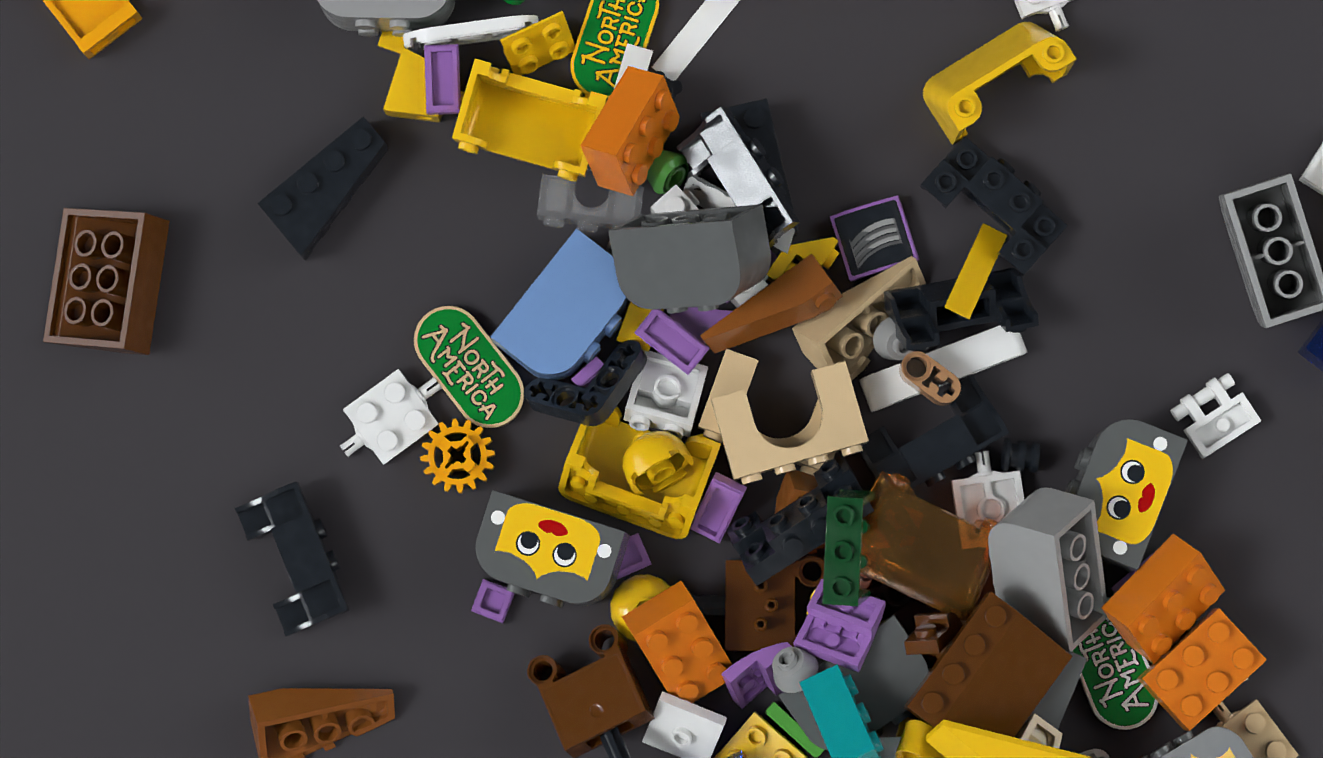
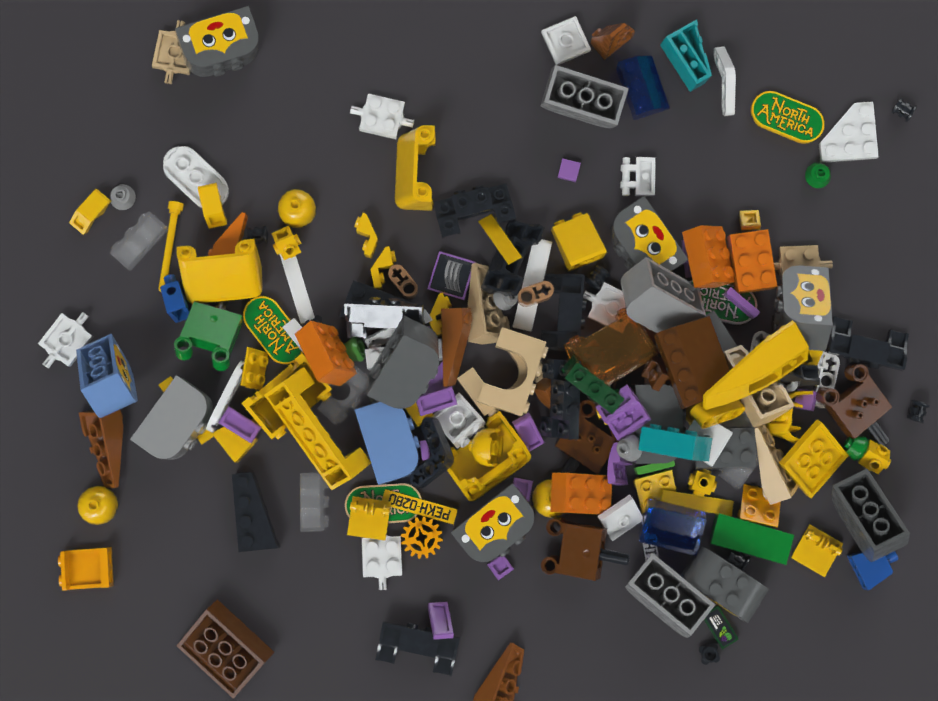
camera: 60 degrees left, 0 degrees up
(355, 564) = (440, 620): none -> medium lavender tile
(403, 263) = (313, 503): none -> clear brick
(433, 359) = (369, 518): none -> yellow hinge
(497, 190) = (310, 433): none -> yellow plate
(500, 422) = (420, 506): none -> yellow sticker
(808, 164) = (404, 275): none -> medium nougat beam
(826, 125) = (383, 262): none -> yellow slope
(856, 65) = (365, 228): none -> yellow slope
(1054, 390) = (578, 241): none -> yellow slope
(1128, 696) = (741, 303): none -> medium lavender tile
(1153, 305) = (569, 170): none -> medium lavender tile
(1265, 627) = (750, 220): none -> yellow tile

